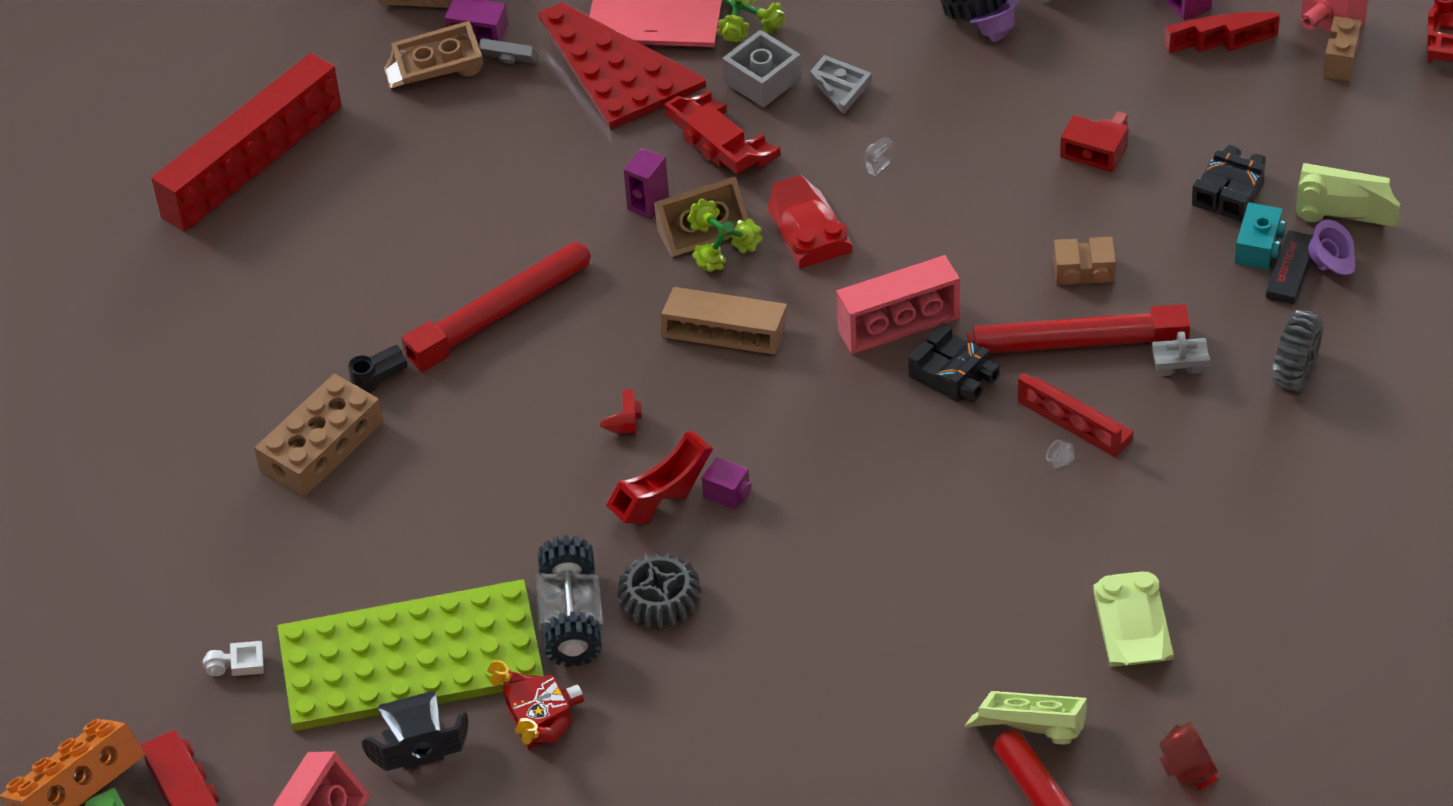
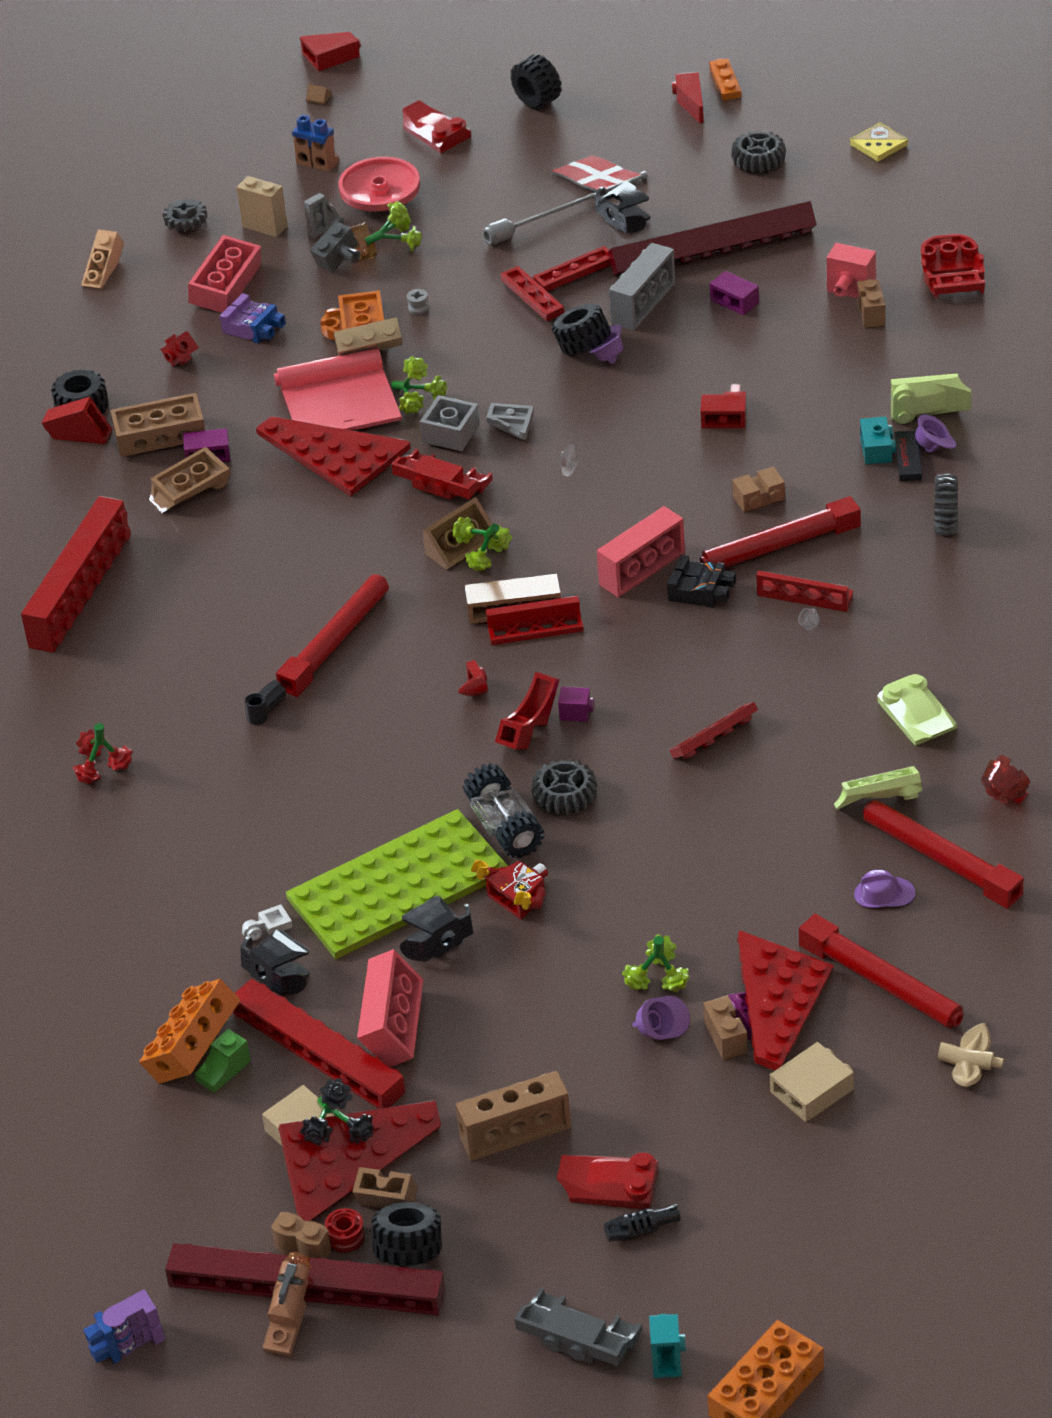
camera: 20 degrees left, 5 degrees down
(159, 364) = (91, 746): none -> red plant
(222, 710) = (275, 960): none -> black piece
(319, 435) = (246, 757): medium nougat brick -> none
(508, 52) = (246, 462): light grey plate -> none
(645, 182) = (406, 521): magenta brick -> none
(737, 352) = (534, 616): none -> red fence
(807, 222) = (538, 519): red slope -> none
(885, 568) = (722, 727): none -> red plate
(1180, 354) = (860, 530): light grey hips -> none
(1230, 30) = (779, 312): red slope -> none
(1230, 181) = (837, 404): black hips -> none

